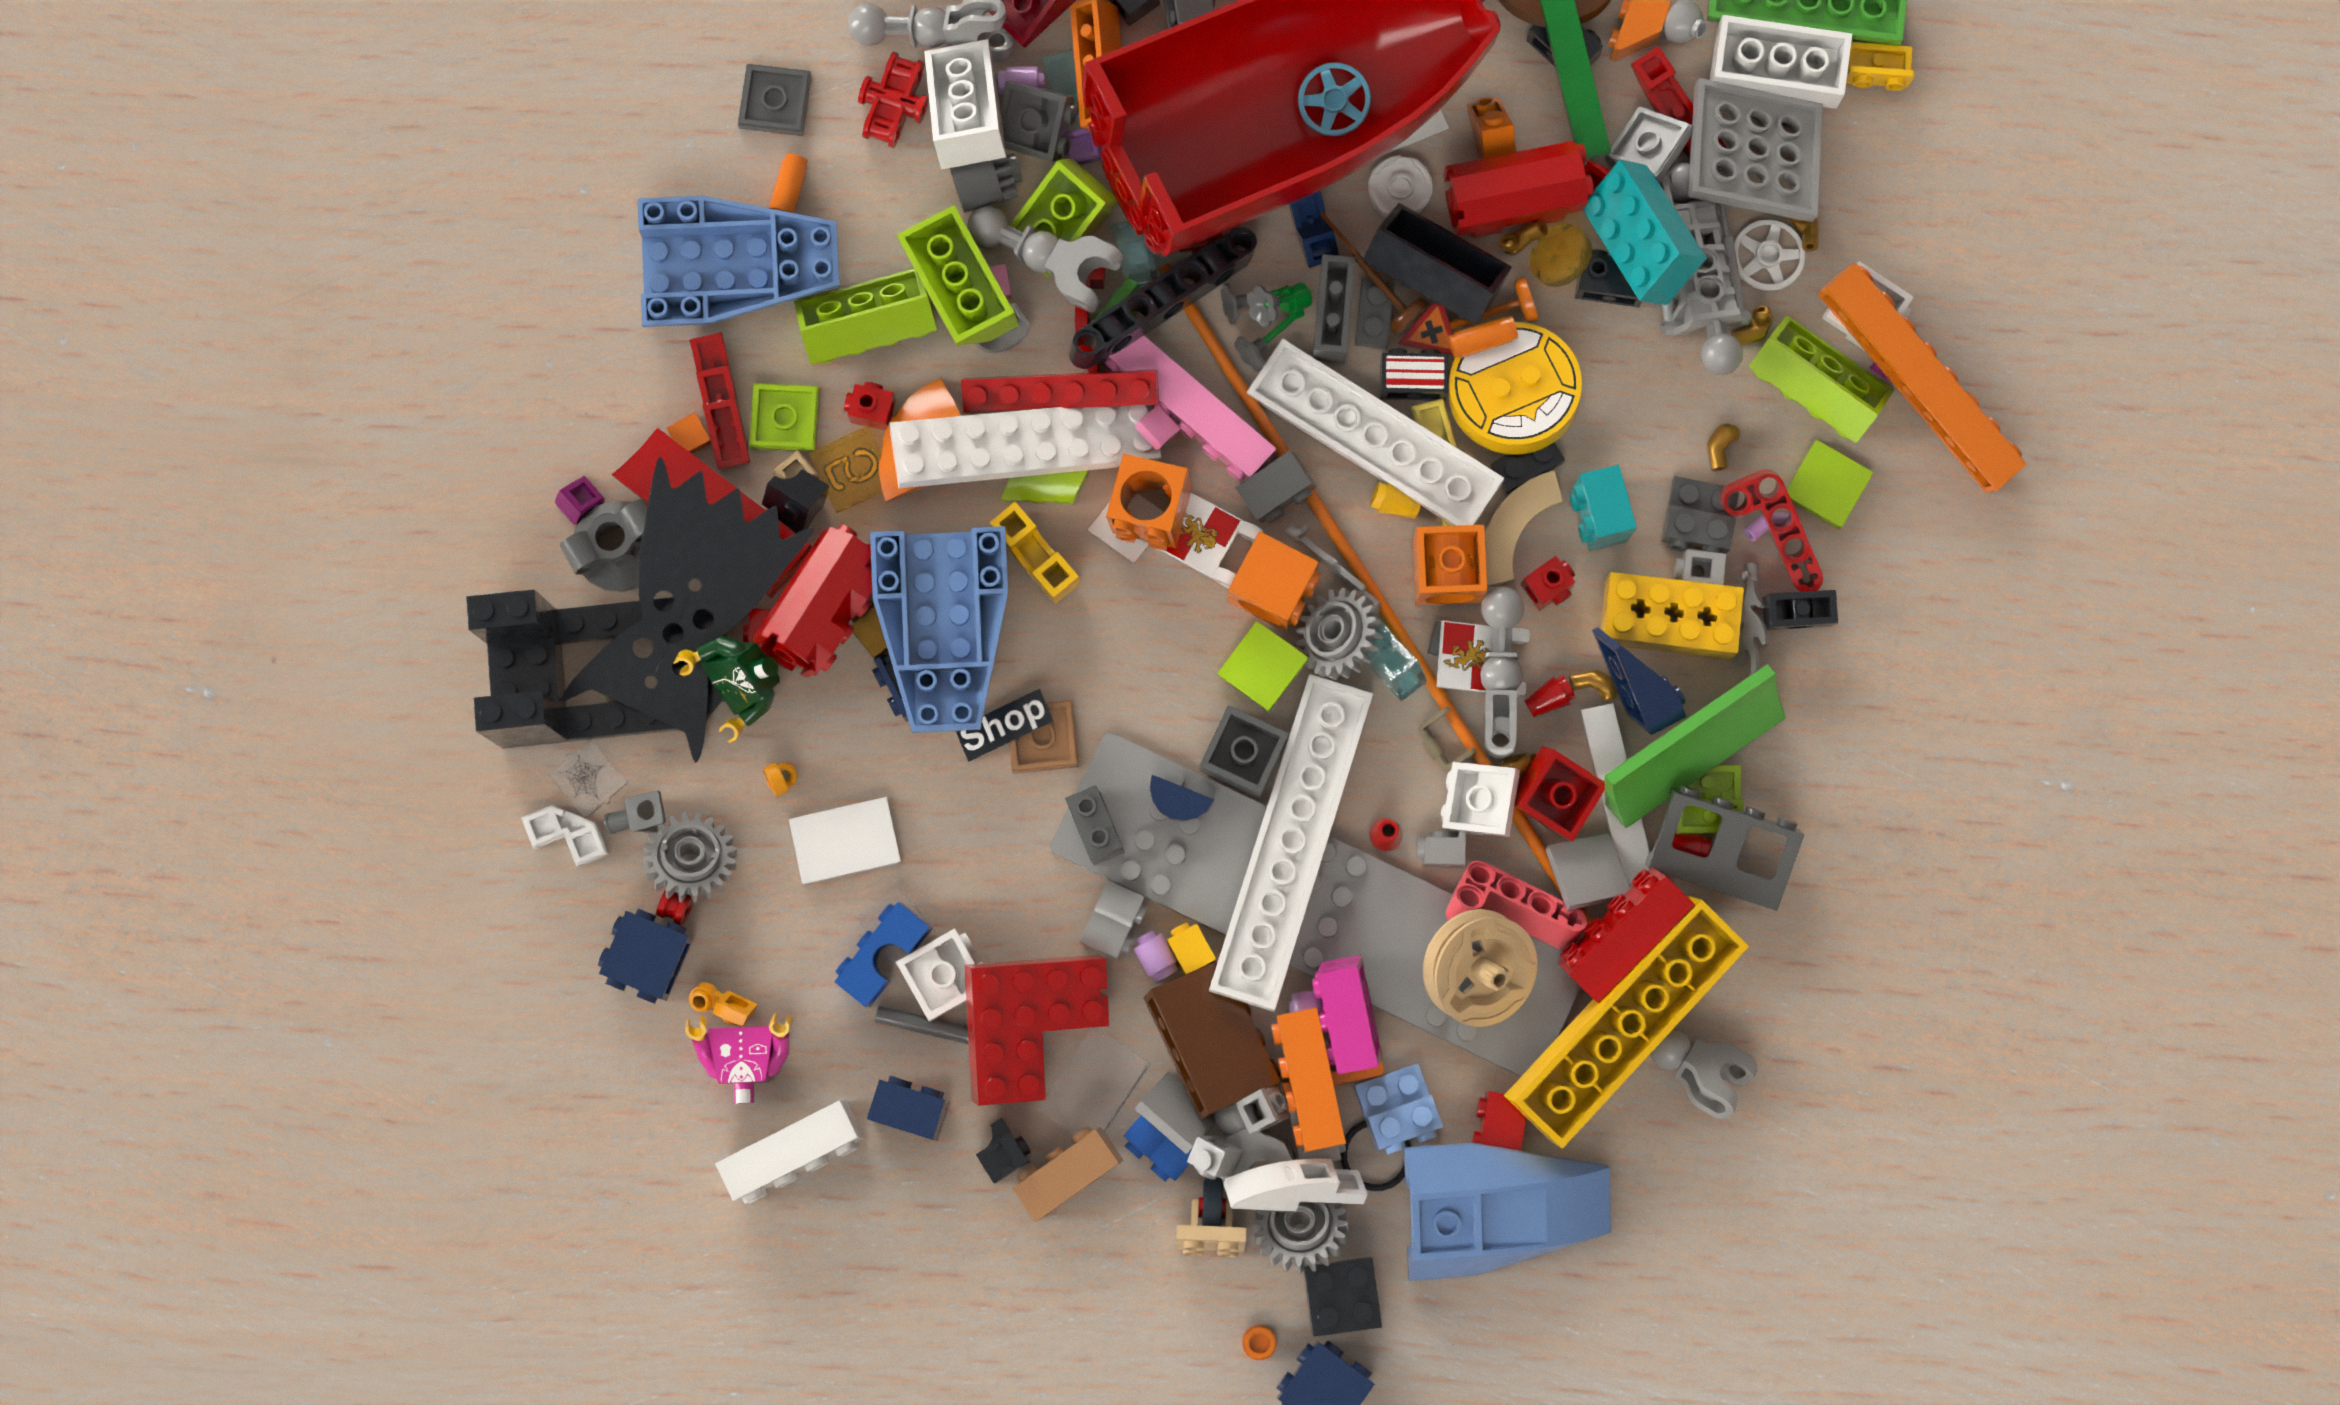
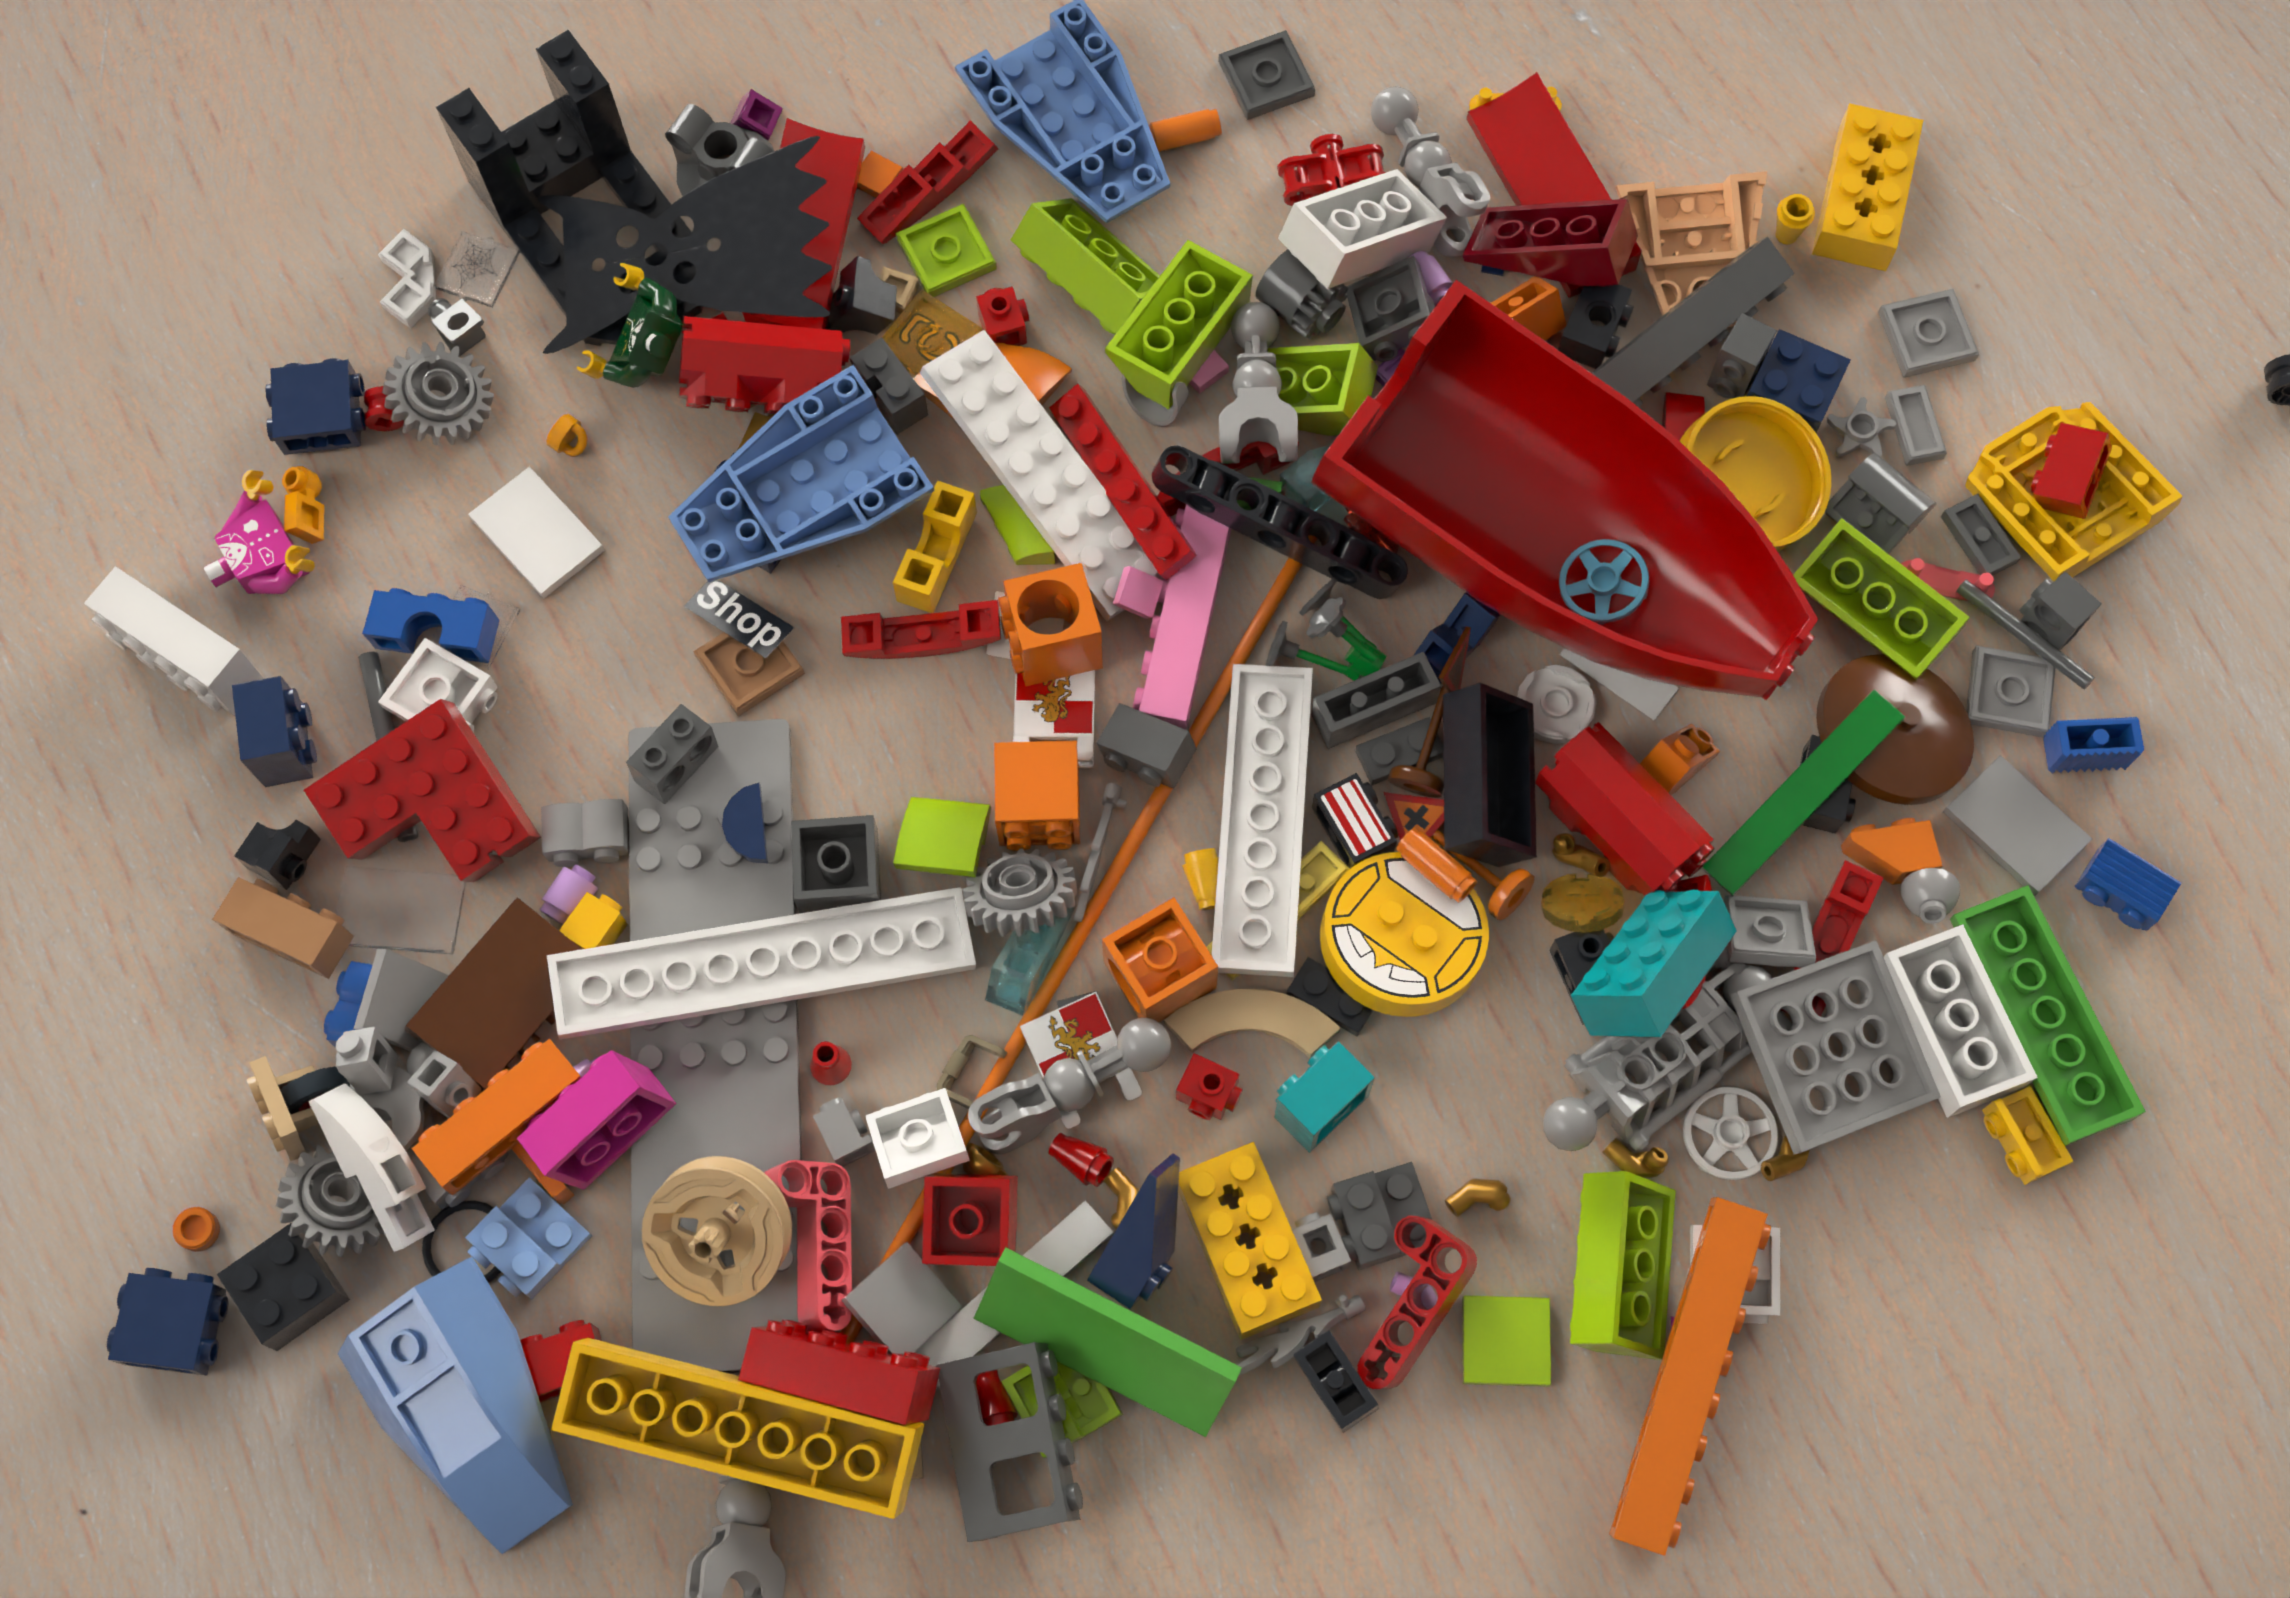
camera: 60 degrees right, 10 degrees down
(880, 514) = (896, 391): none -> dark grey brick
(1093, 598) = (921, 634): none -> red slope

